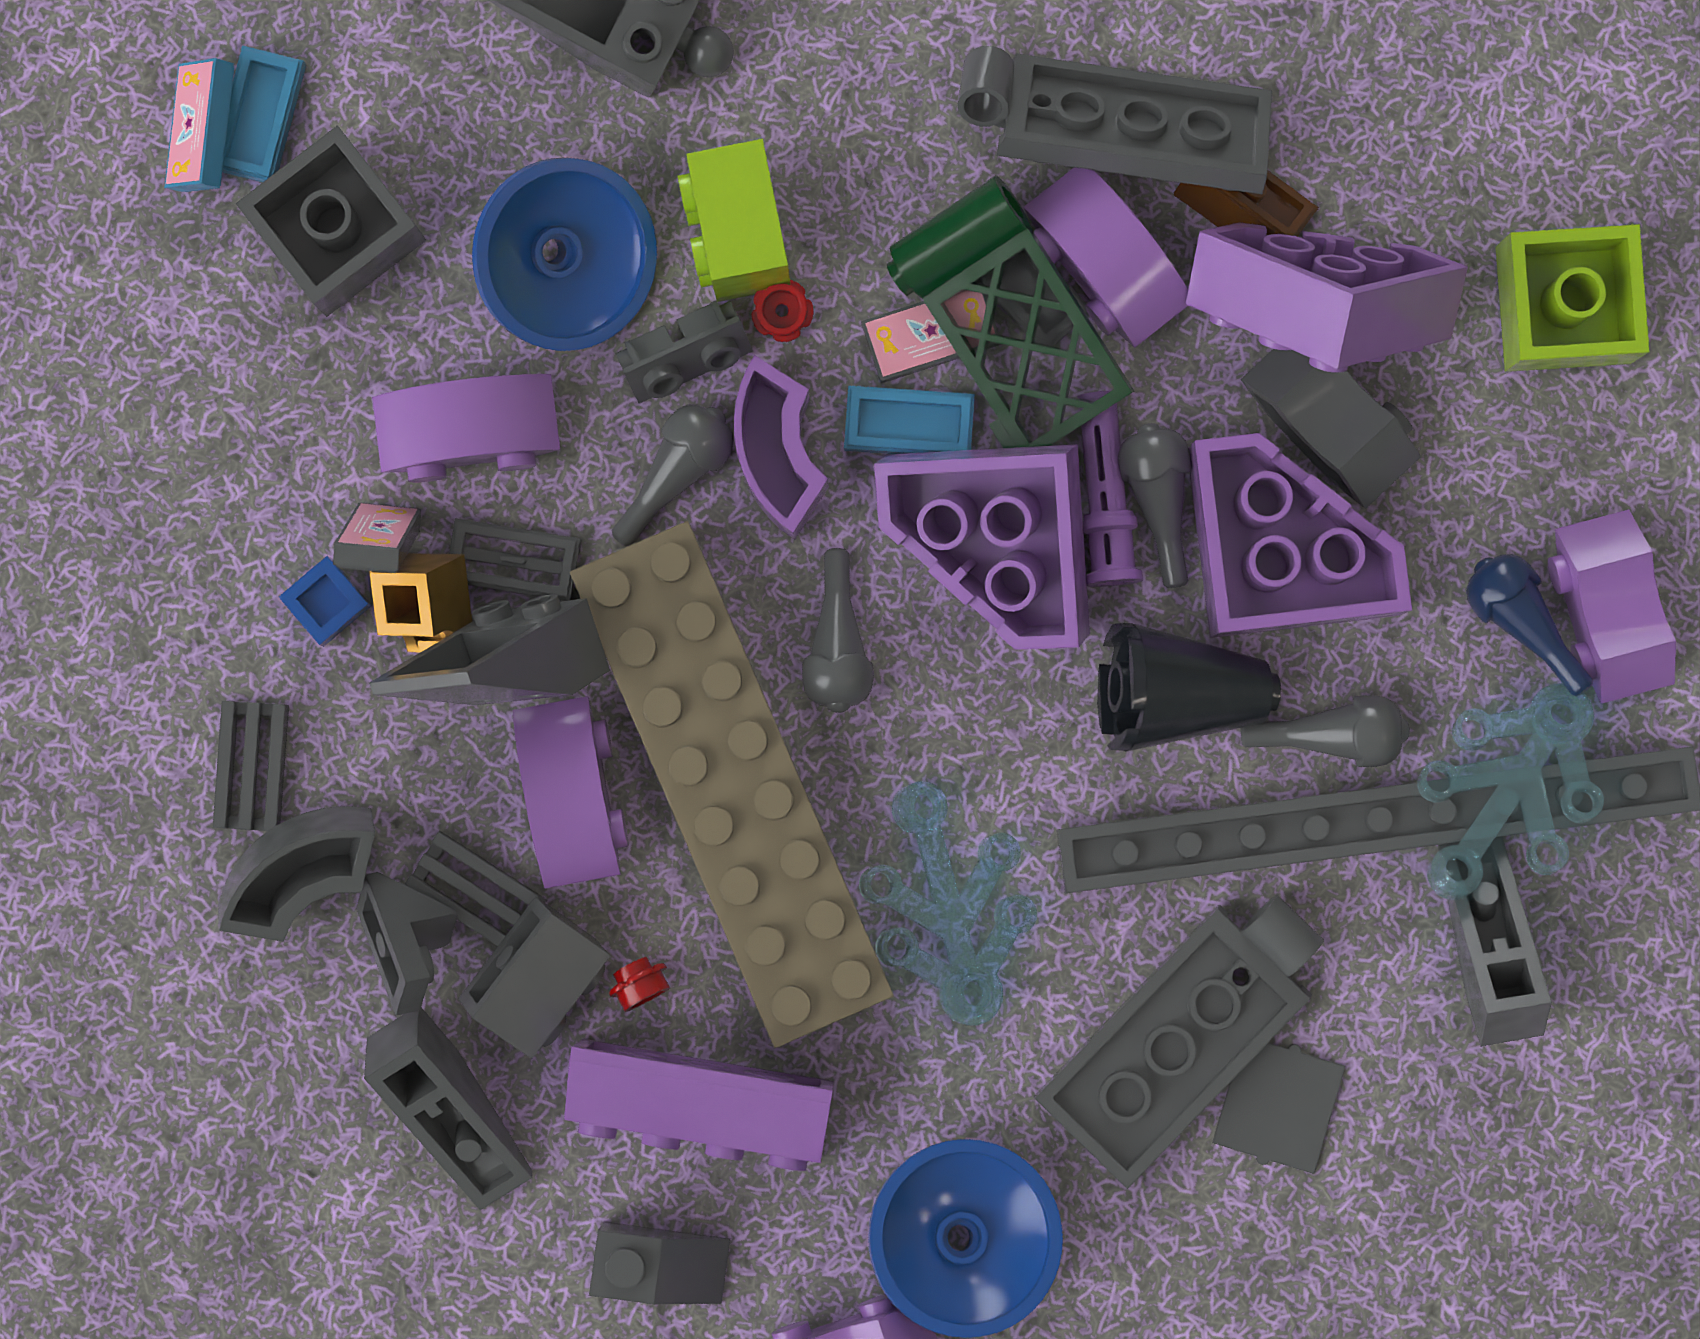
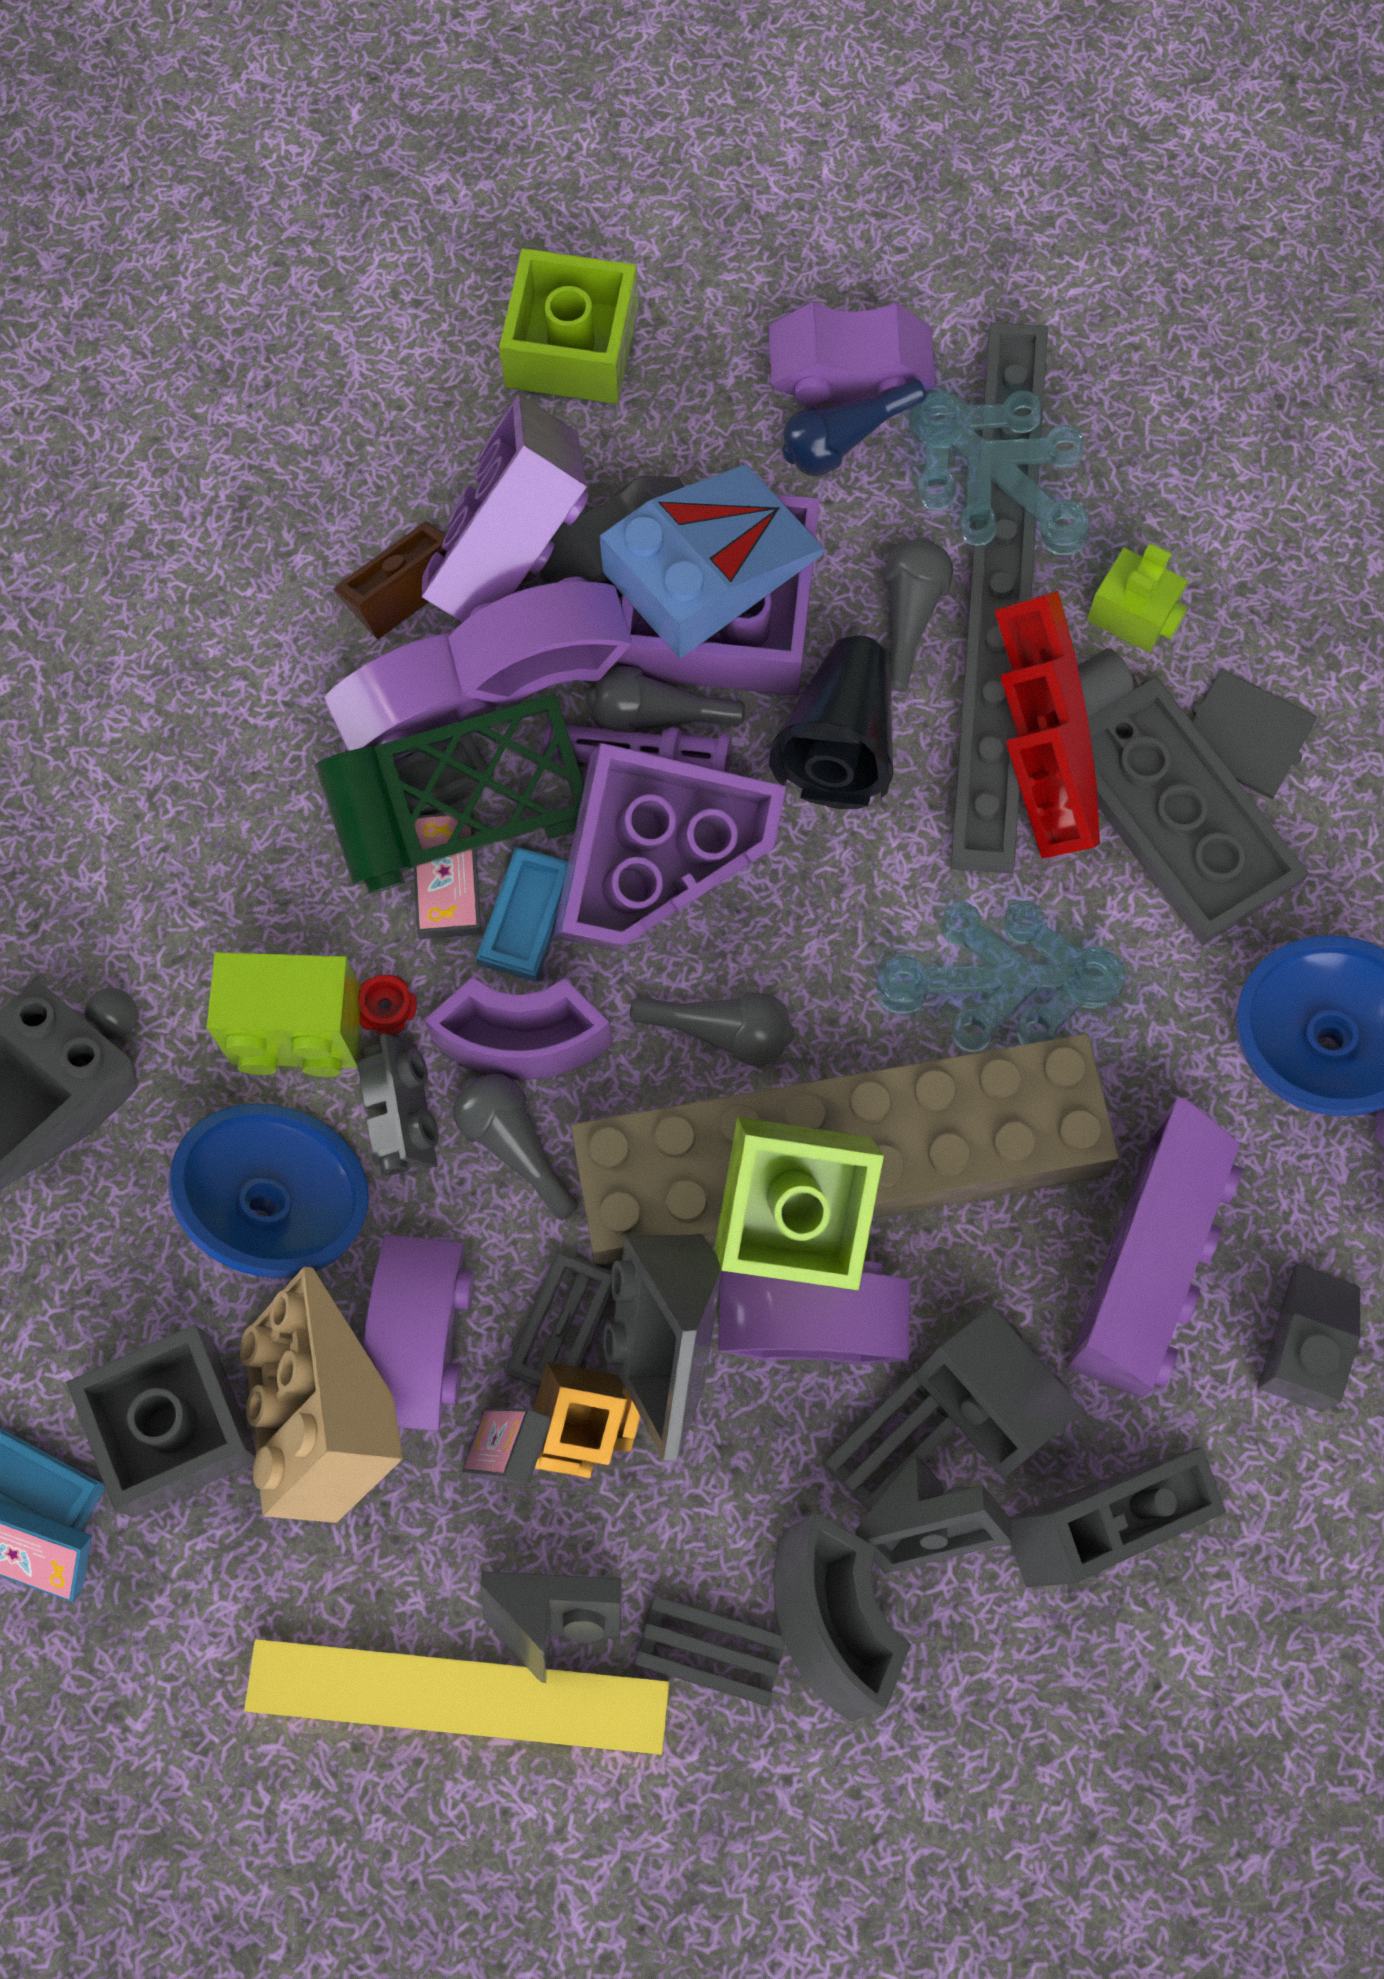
camera: 80 degrees left, 15 degrees down
(161, 551) = (457, 1696): none -> light yellow tile
(246, 597) = (534, 1606): none -> dark grey slope
(325, 601) = (556, 1526): blue plate -> none
(373, 353) = (315, 1407): none -> tan slope
(639, 983) = (1022, 1292): red plate -> none
(641, 751) = (798, 1203): none -> lime brick
(1119, 119) = (296, 654): dark grey hinge -> none
(1180, 362) = (539, 640): none -> medium lavender brick
(1204, 905) = (1052, 725): none -> red slope
(1312, 512) = (705, 555): none -> medium blue slope
(1394, 967) = (1140, 598): none -> lime brick
(1498, 953) = (1168, 506): dark grey slope -> none

